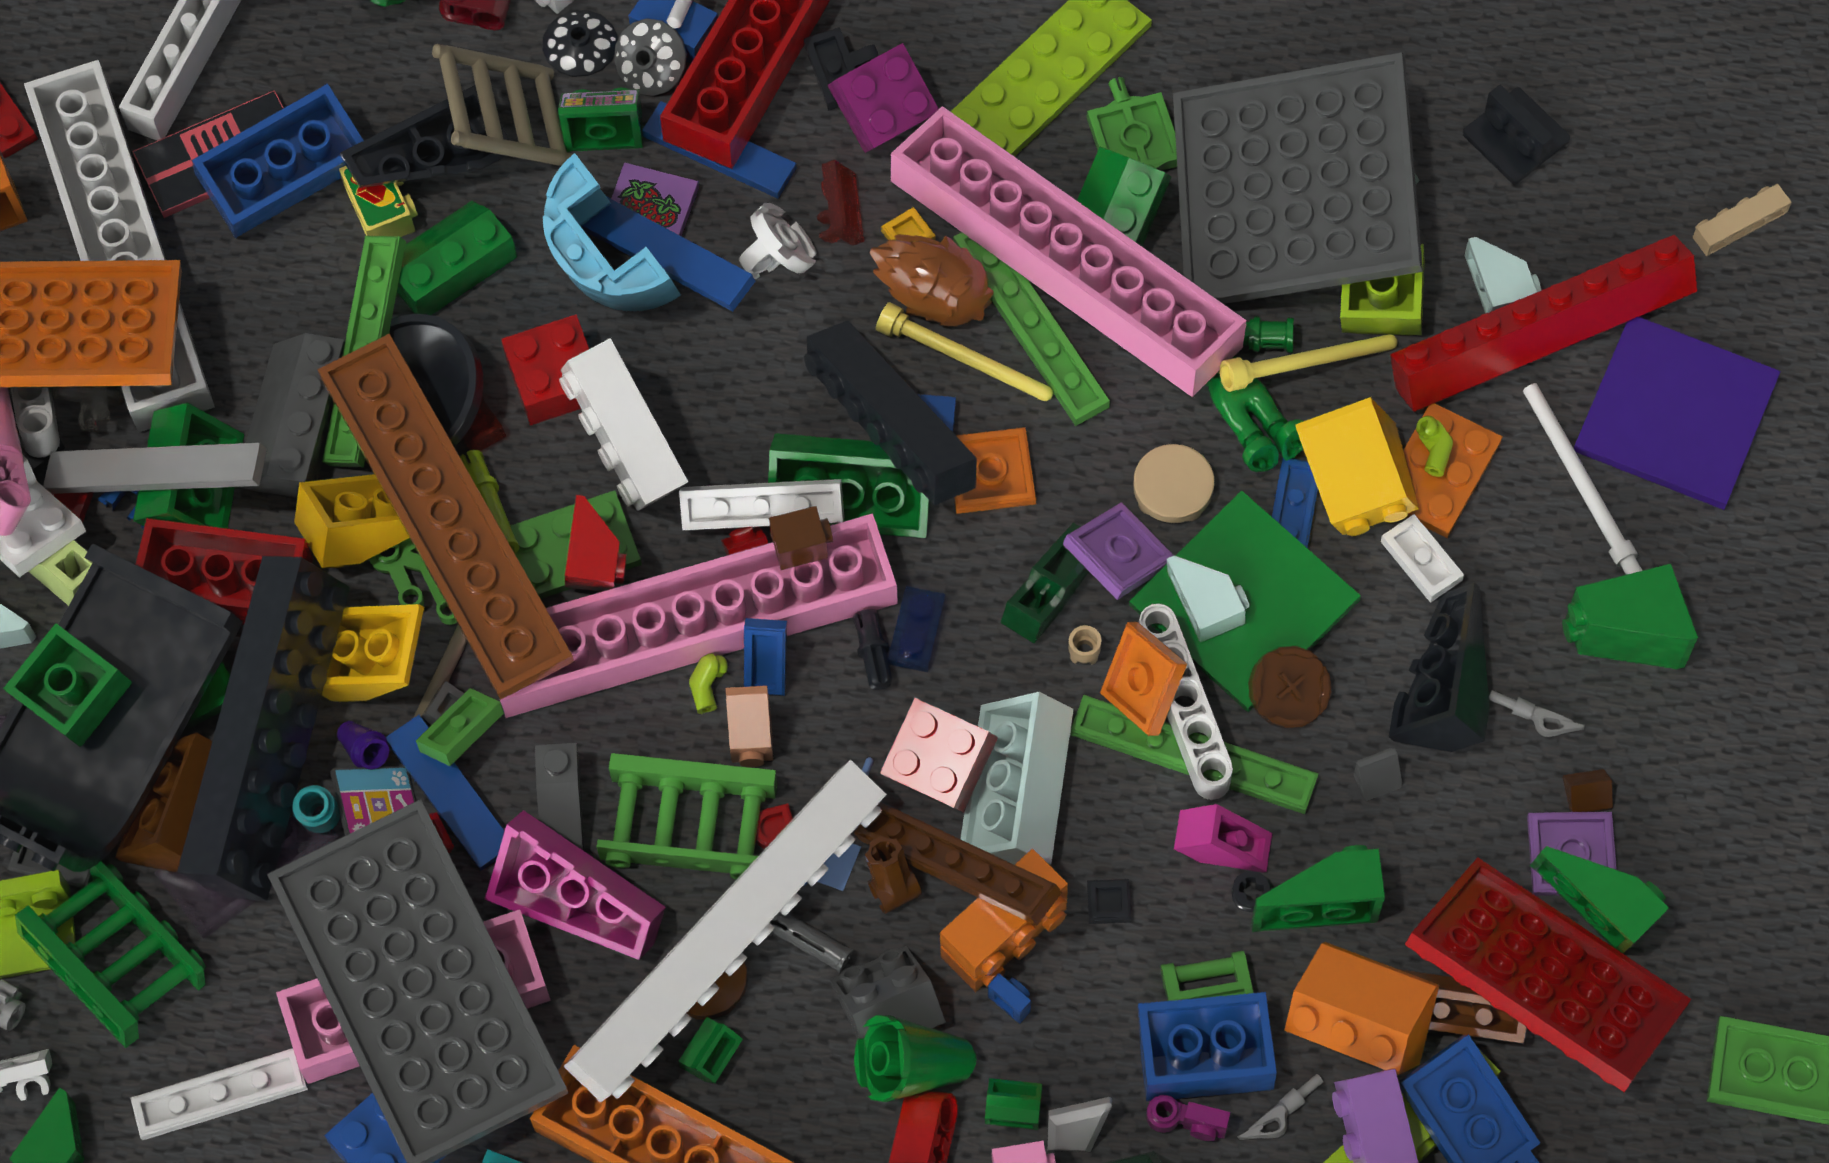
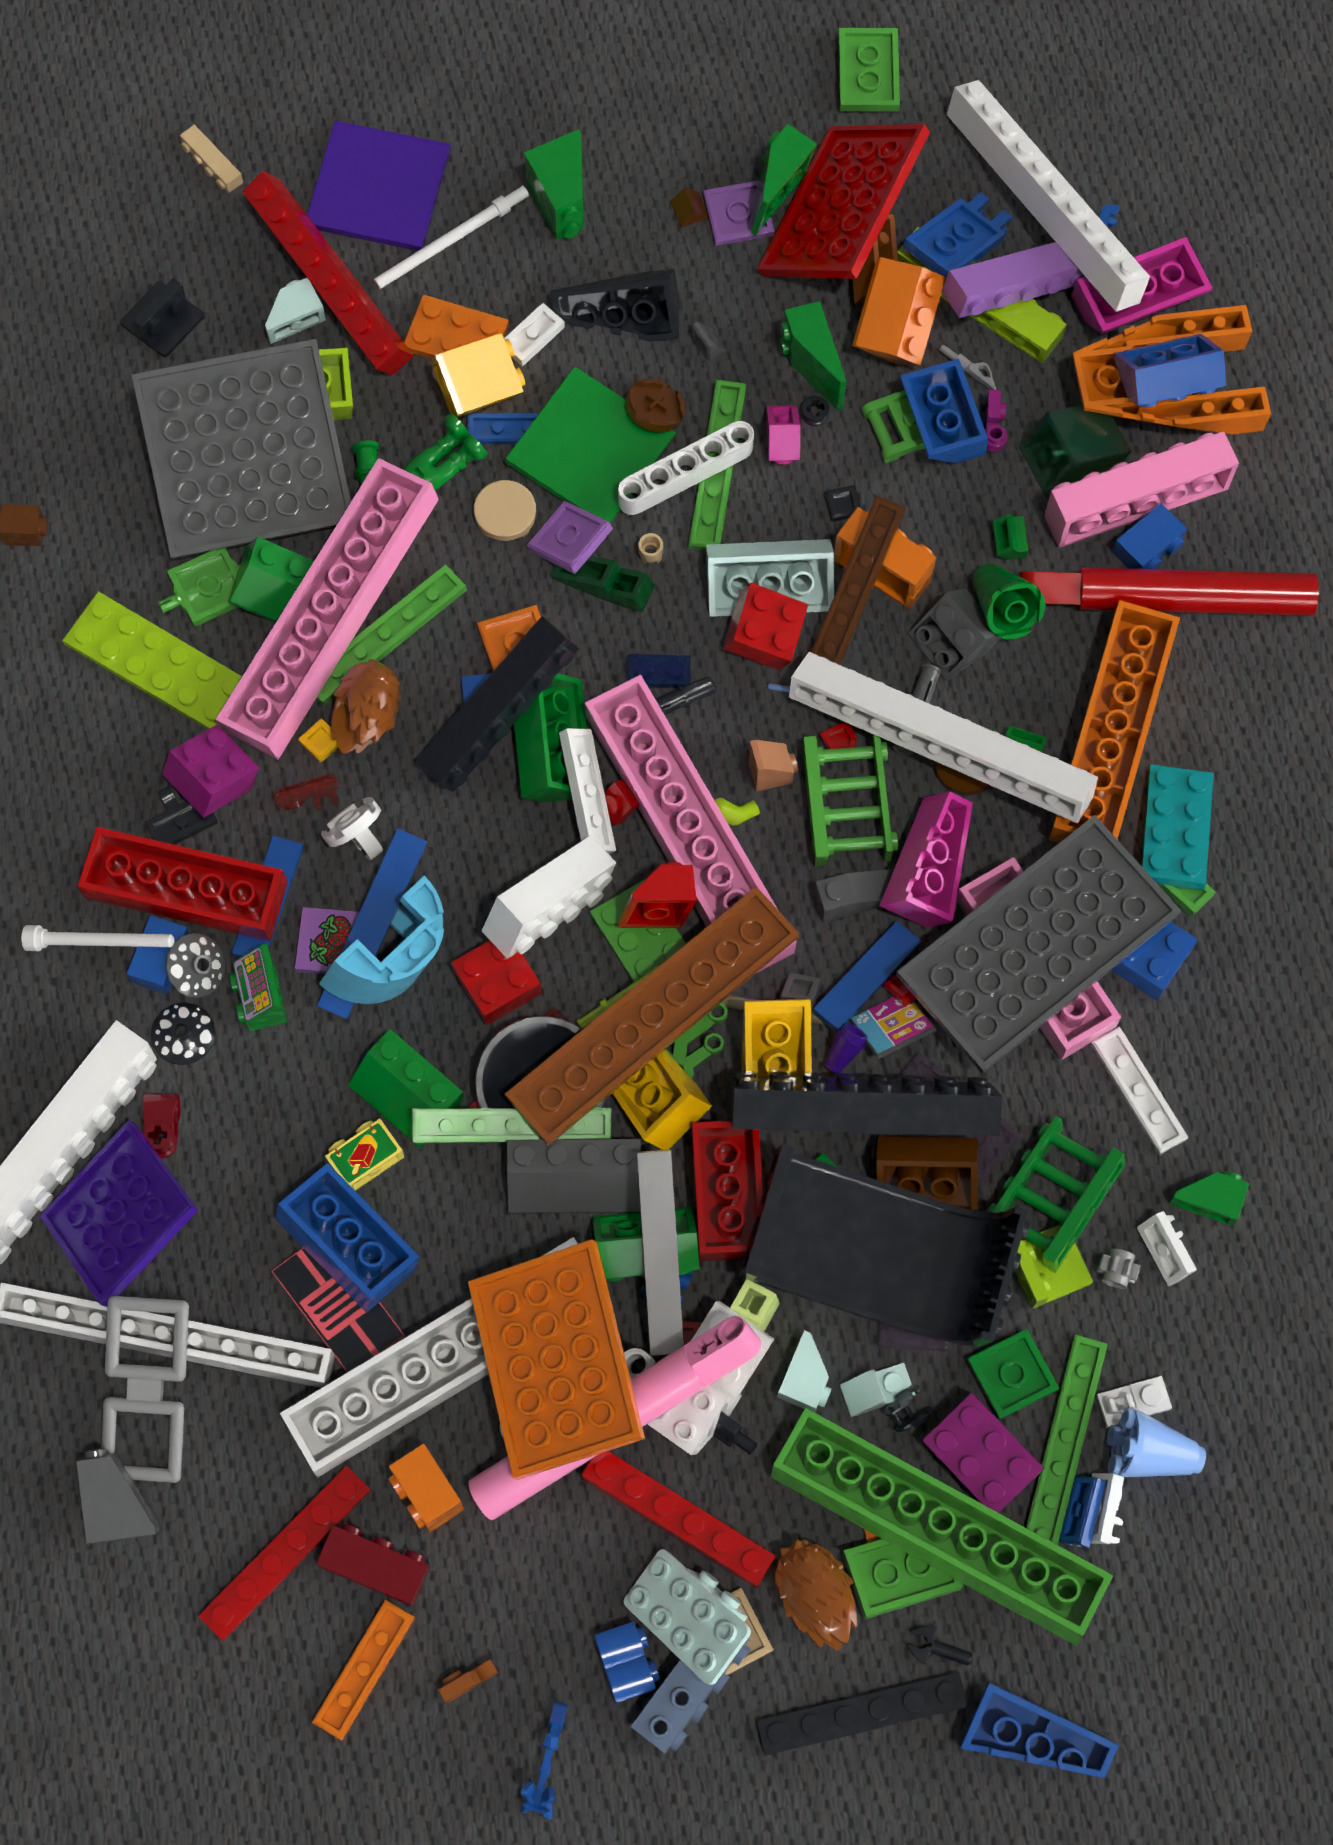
camera: 105 degrees left, 5 degrees up
(68, 685) = (864, 1265): green brick -> none
(308, 800) = (912, 1059): teal brick -> none
(419, 147) = (310, 1112): black wedge -> none
(459, 726) = (820, 971): bright green plate -> none
(512, 70) = (309, 1054): dark tan bar -> none
(765, 654) = (713, 763): blue tile -> none
(800, 537) = (622, 743): reddish brown brick -> none
(891, 875) = (867, 643): reddish brown piece -> none
(896, 322) = (403, 733): light yellow piece -> none
(1010, 997) = (938, 546): blue plate -> none
(1077, 1125) = (1020, 490): light grey piece -> none
(1143, 678) = (678, 493): orange tile -> none
(1207, 597) = (603, 464): light aqua slope -> none
(1238, 373) = (410, 463): light yellow piece -> none
(1437, 442) = (444, 328): lime arm -> none
(1537, 714) = (639, 245): light grey hand -> none

